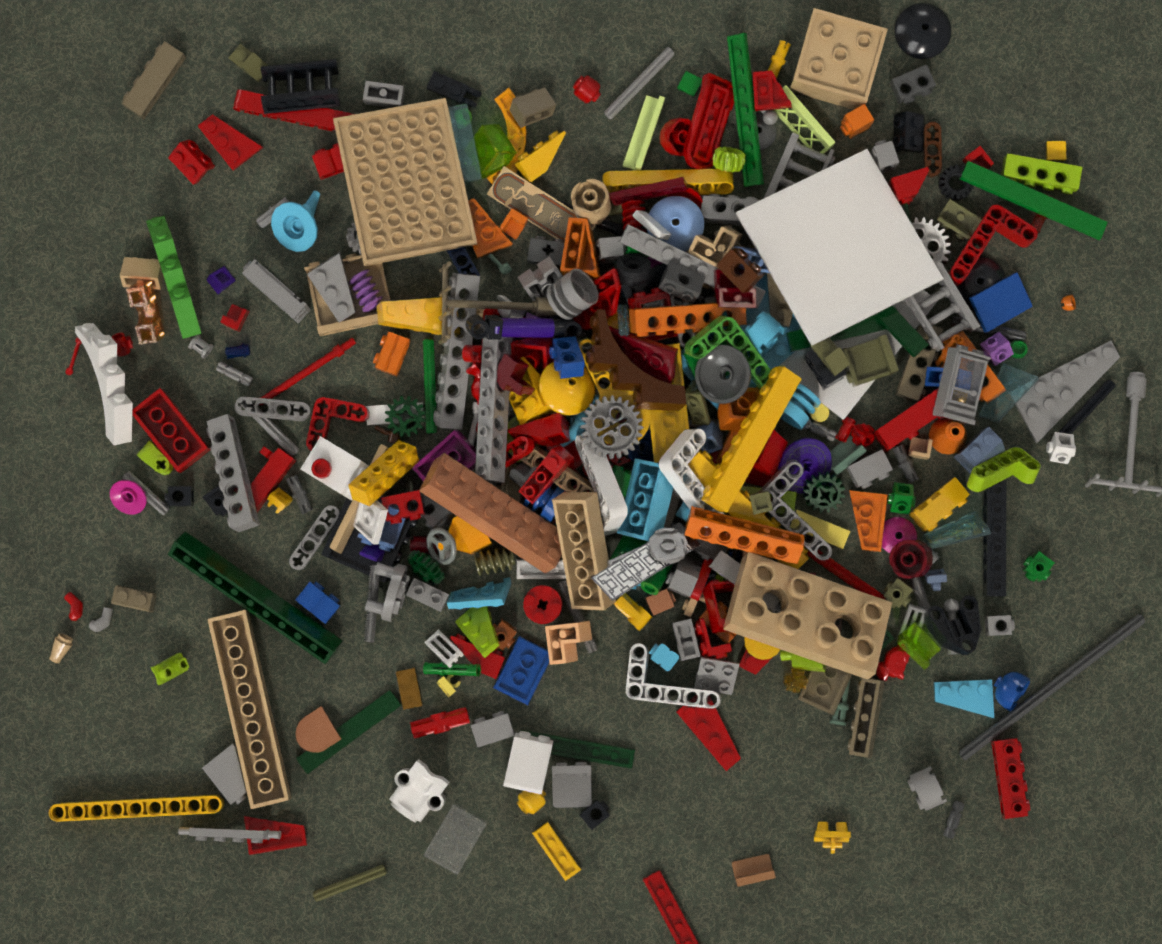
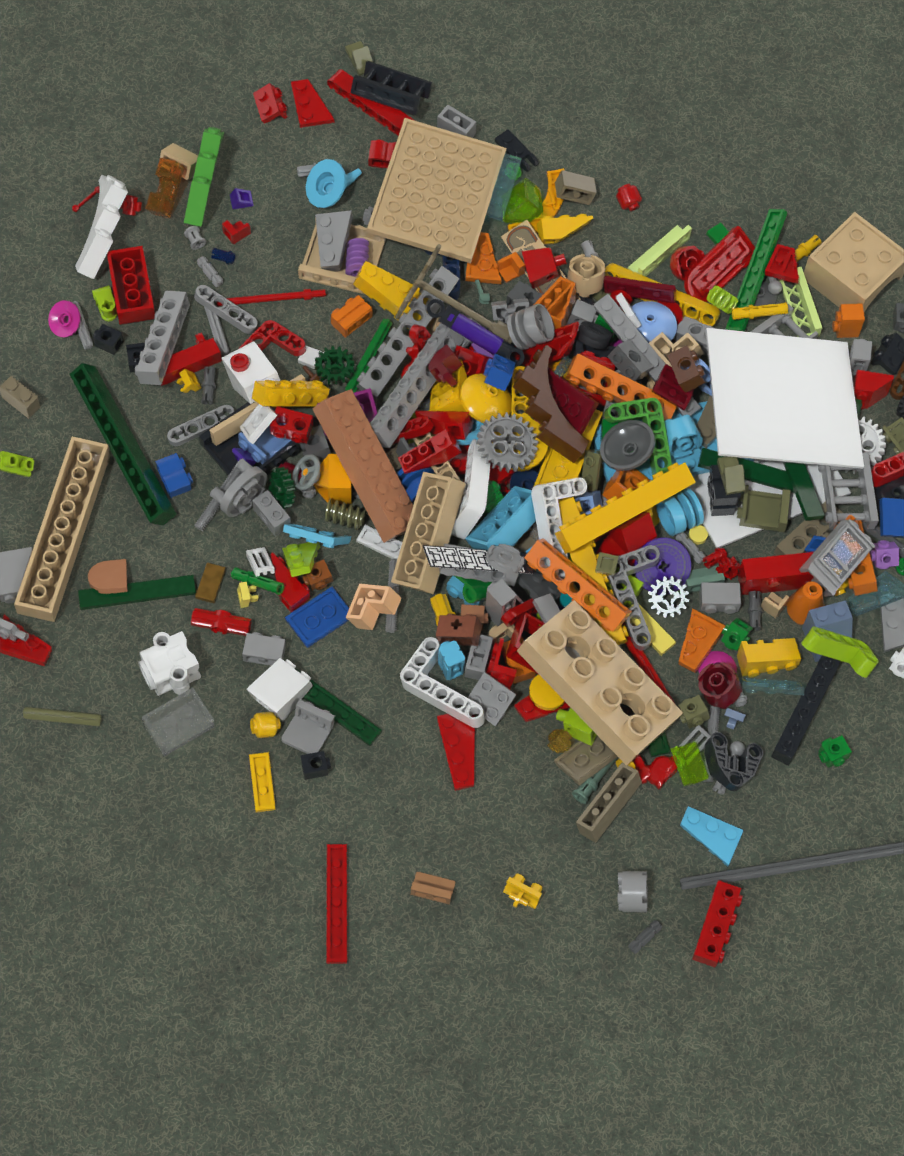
camera: 25 degrees right, 20 degrees down
(153, 80) = (275, 34): dark tan brick -> none
(275, 290) = (282, 222): light grey door -> none
(532, 600) = (367, 558): red brick -> none
(544, 210) = (542, 265): none -> red torso
(582, 171) = (588, 249): none -> light grey pin
(639, 83) = (676, 214): light grey axle -> none
(669, 628) = (462, 629): none -> copper brick
(769, 156) = (758, 311): none -> yellow pin
(990, 625) = (772, 777): light grey brick -> none
(1010, 689) = (757, 841): blue cylinder -> none

